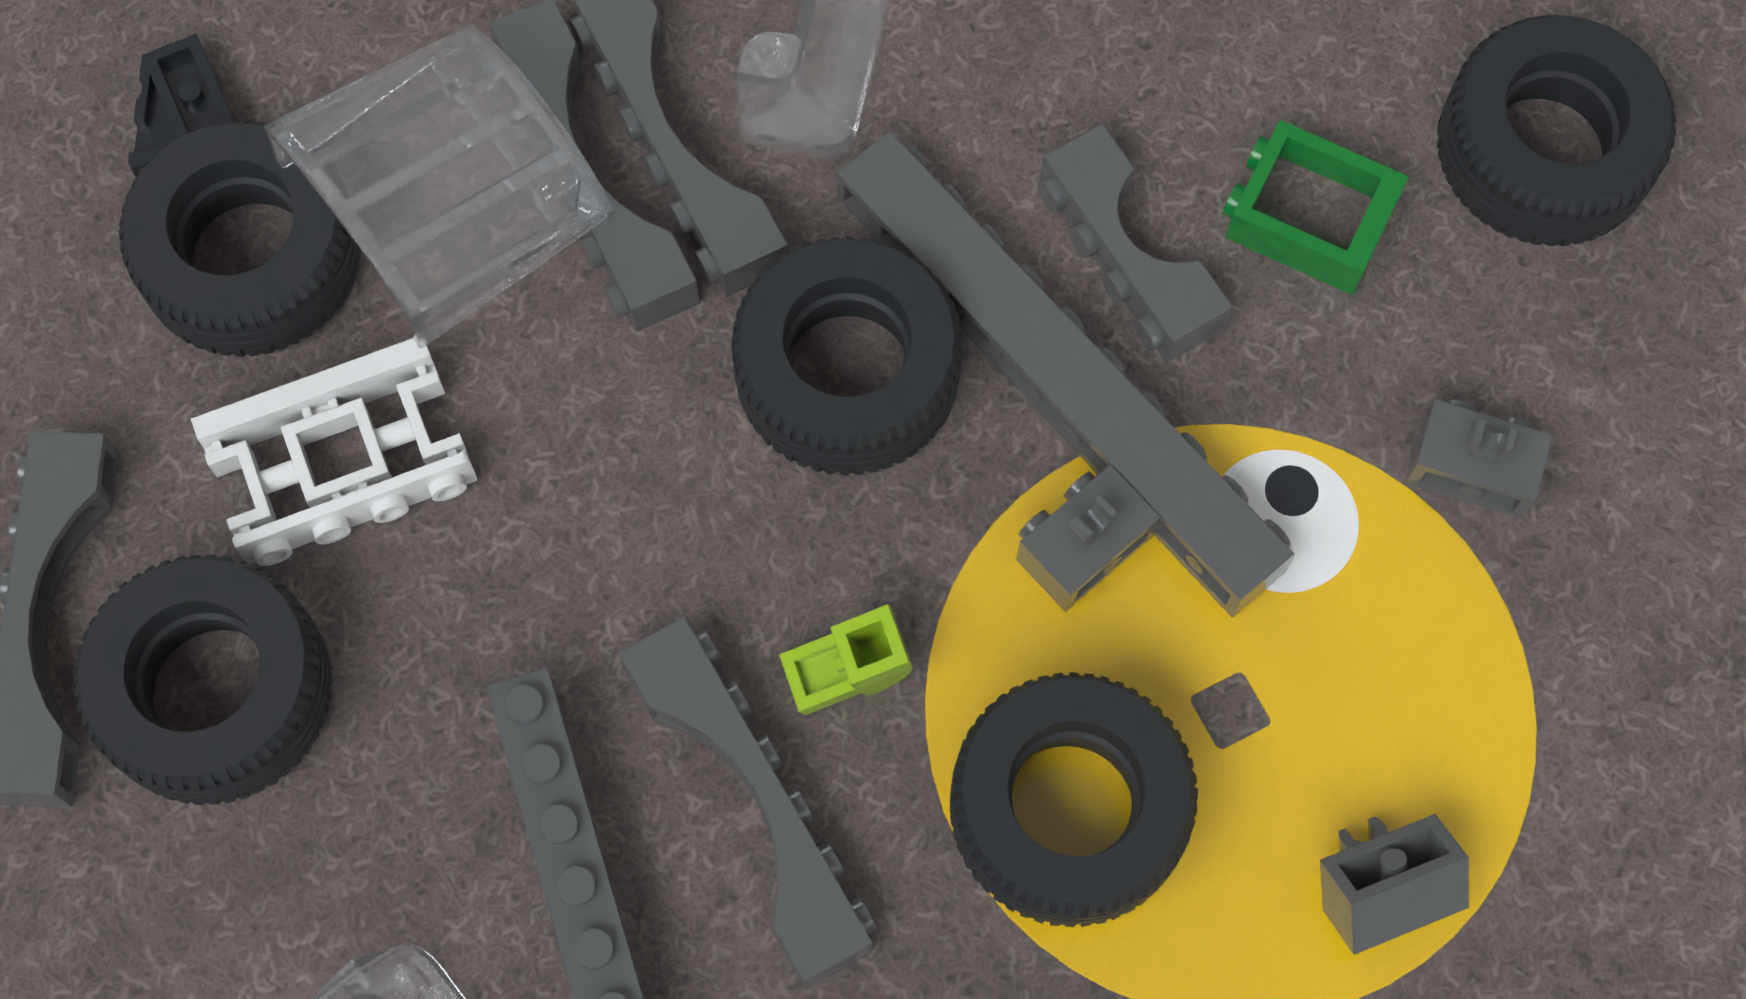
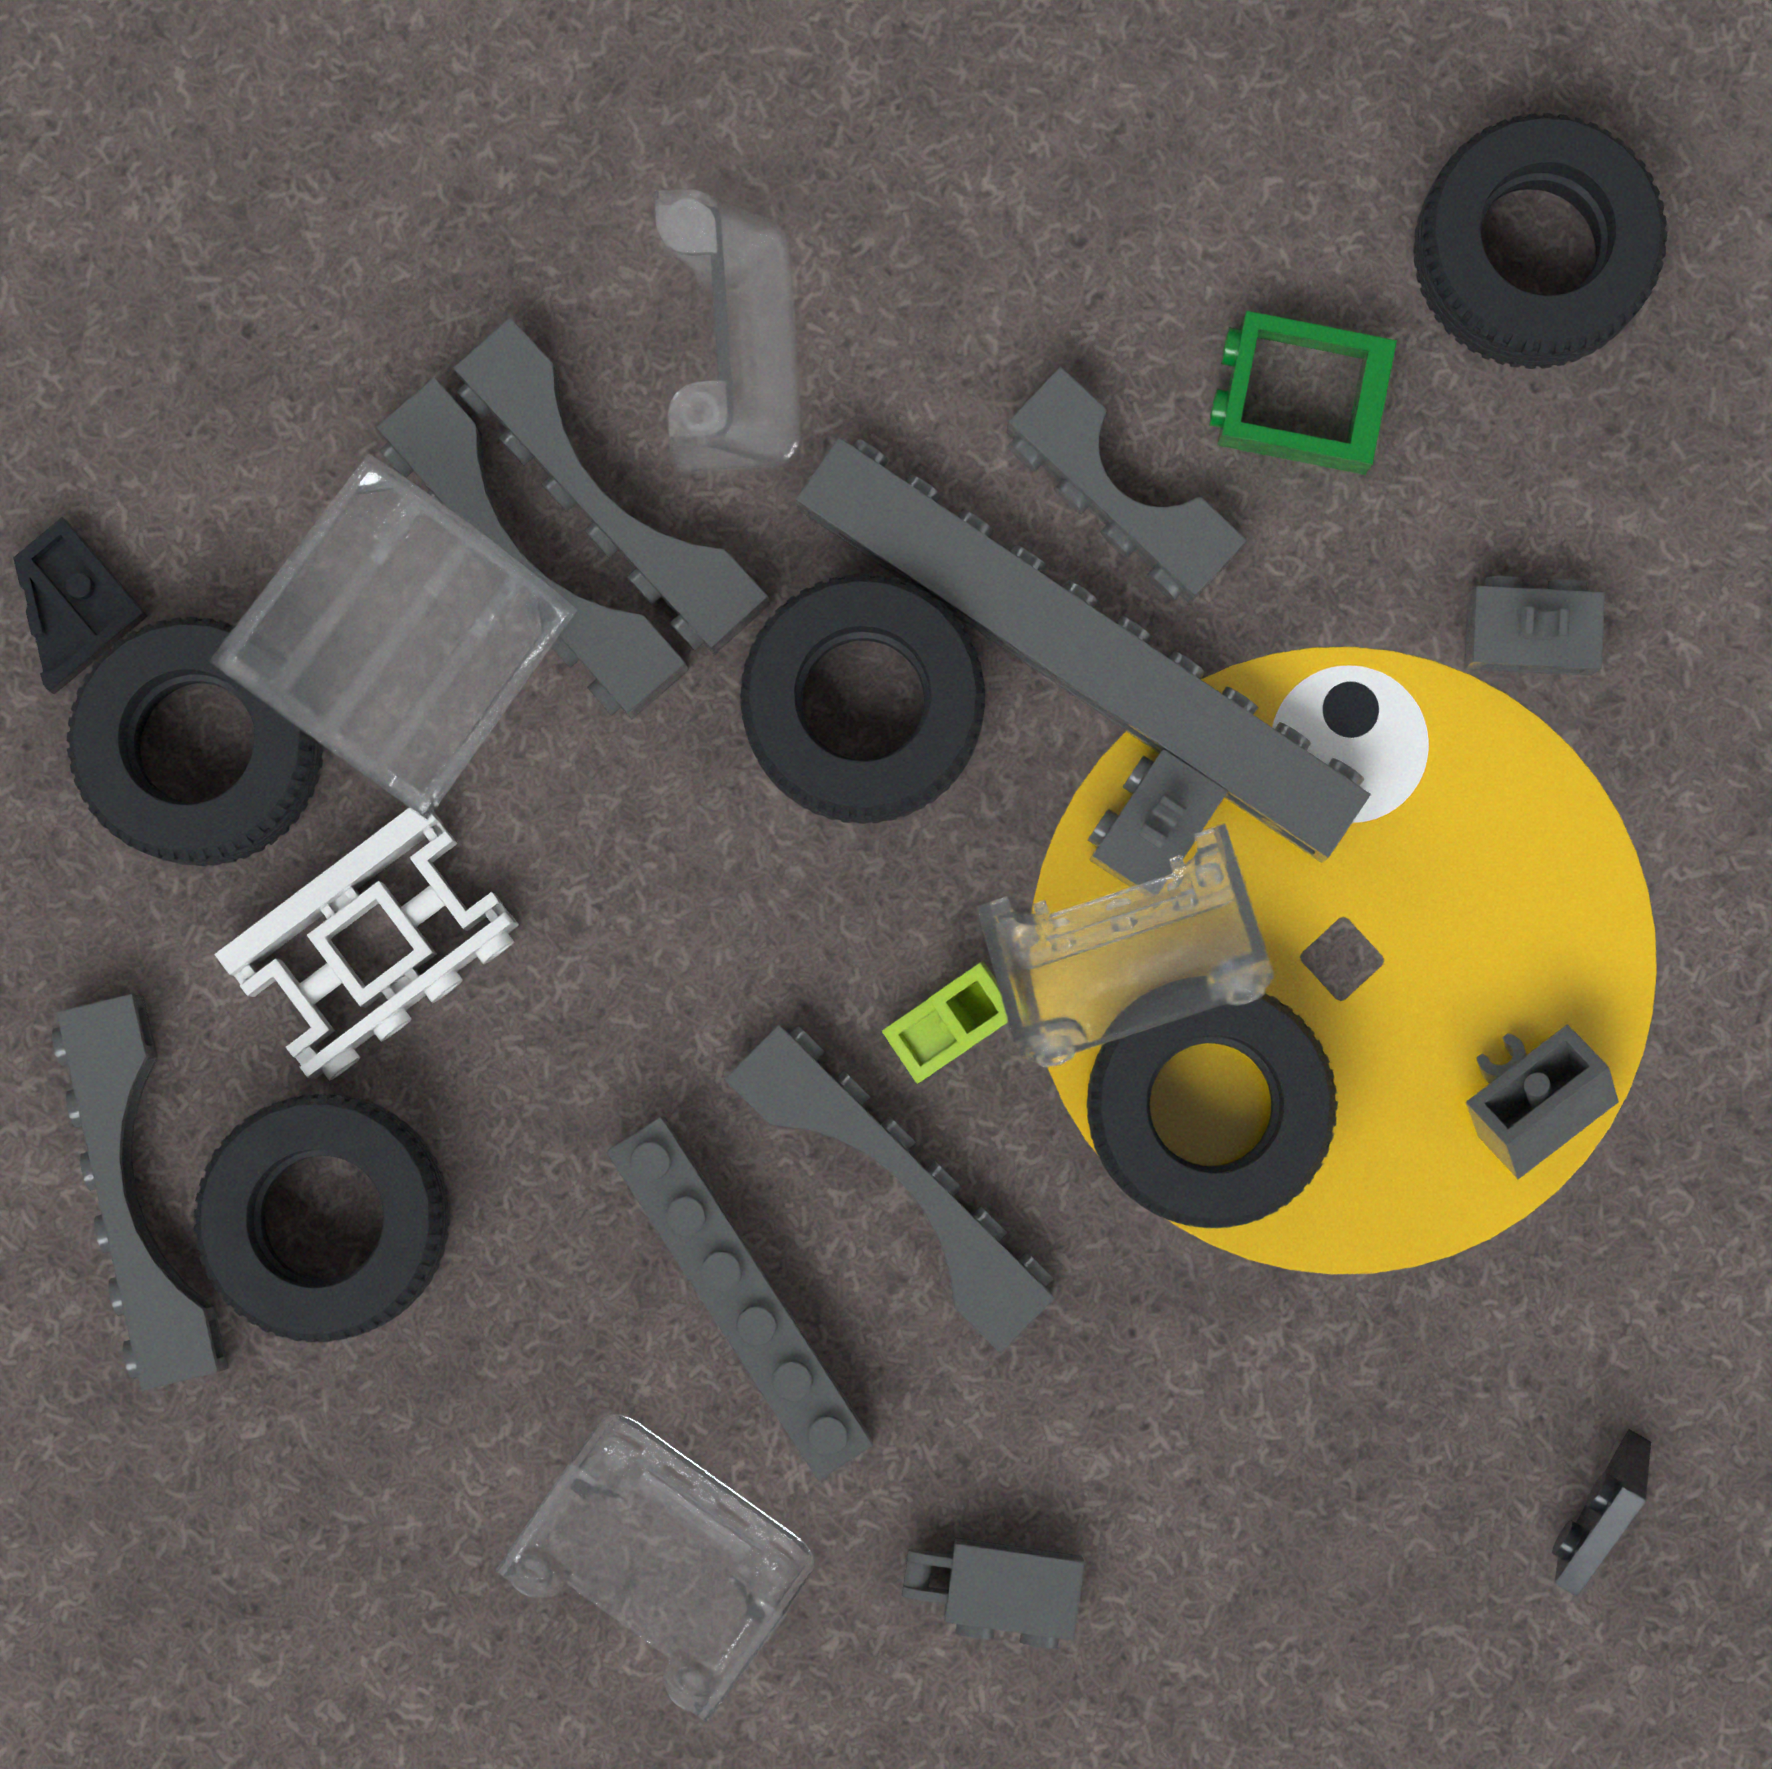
camera: 10 degrees left, 15 degrees up
(1029, 631) = (1129, 955): none -> clear windscreen

